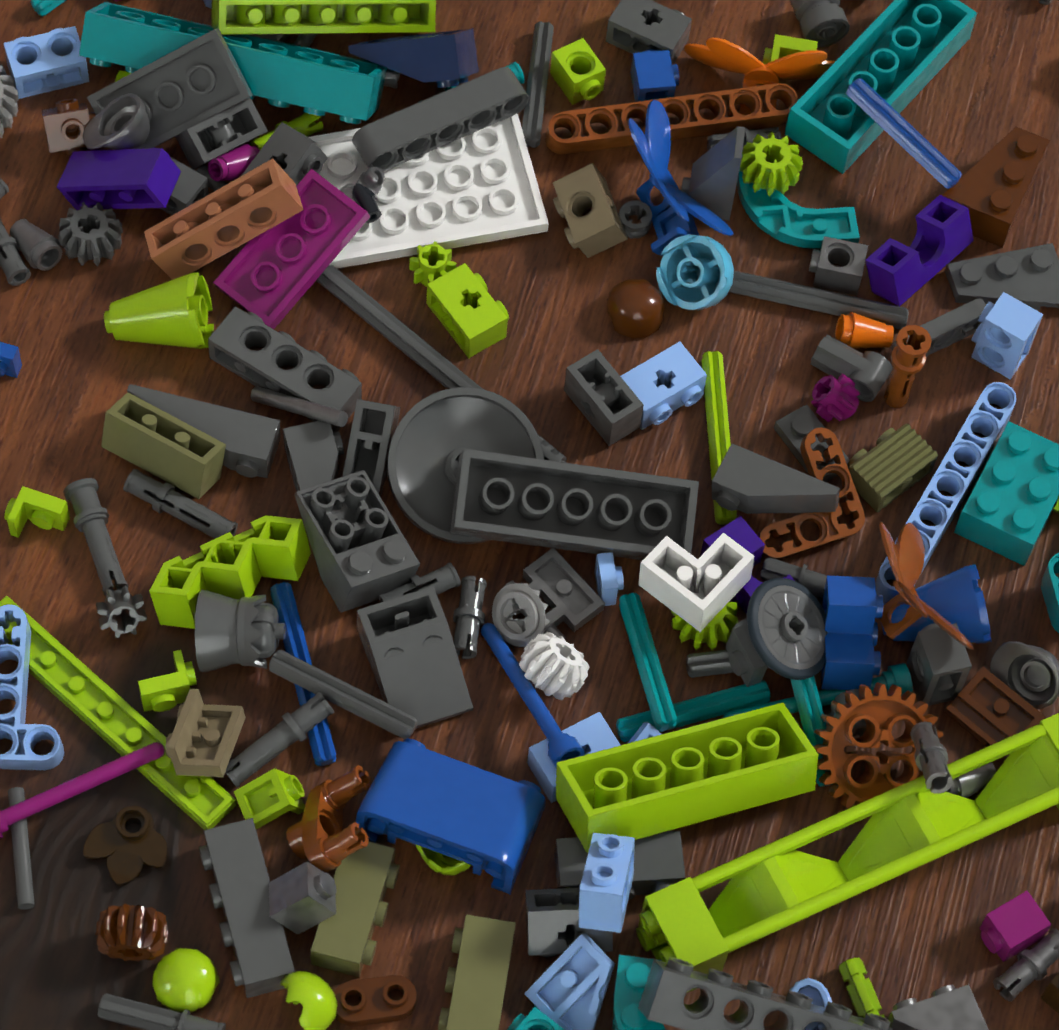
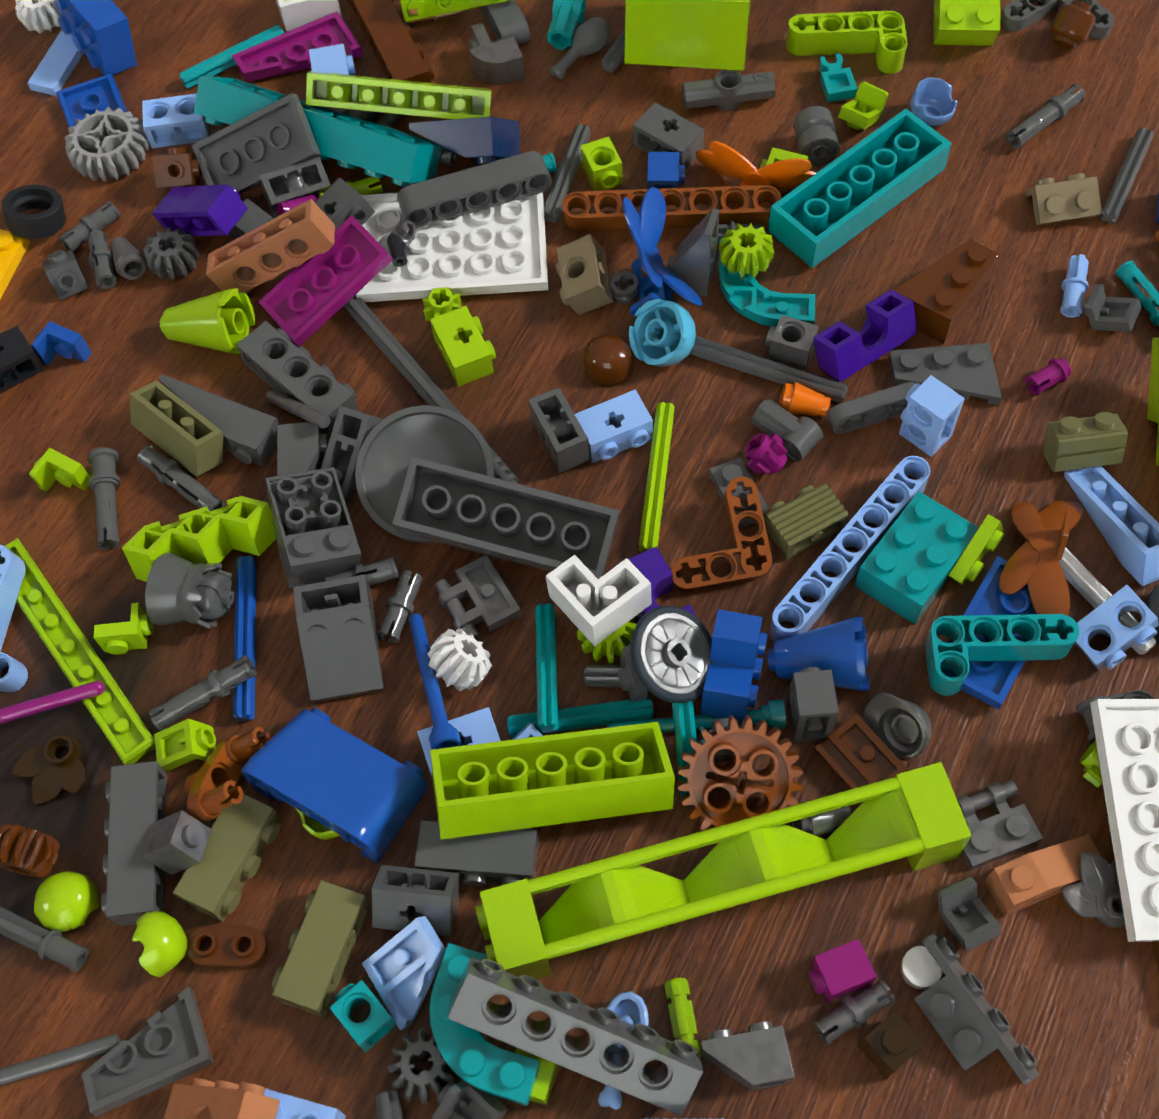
camera: 20 degrees right, 0 degrees up
(119, 125) = (210, 168): flat silver hat -> none
(129, 616) = (94, 563): dark grey gear -> none
(203, 737) = (137, 681): dark tan bracket -> none
(343, 694) = (268, 661): dark grey axle -> none
(511, 600) = (433, 599): light grey gear -> none
(606, 882) = (445, 872): light blue brick -> none
(608, 578) = (528, 588): light blue plate -> none
(765, 486) = (683, 523): dark grey slope -> none
(810, 579) = (703, 608): dark grey axle -> none
(904, 133) = (867, 234): blue axle -> none
(907, 360) = (830, 425): dark orange pin -> none
(907, 564) = (794, 610): dark orange piece -> none
(931, 757) = (781, 796): flat silver pin -> none

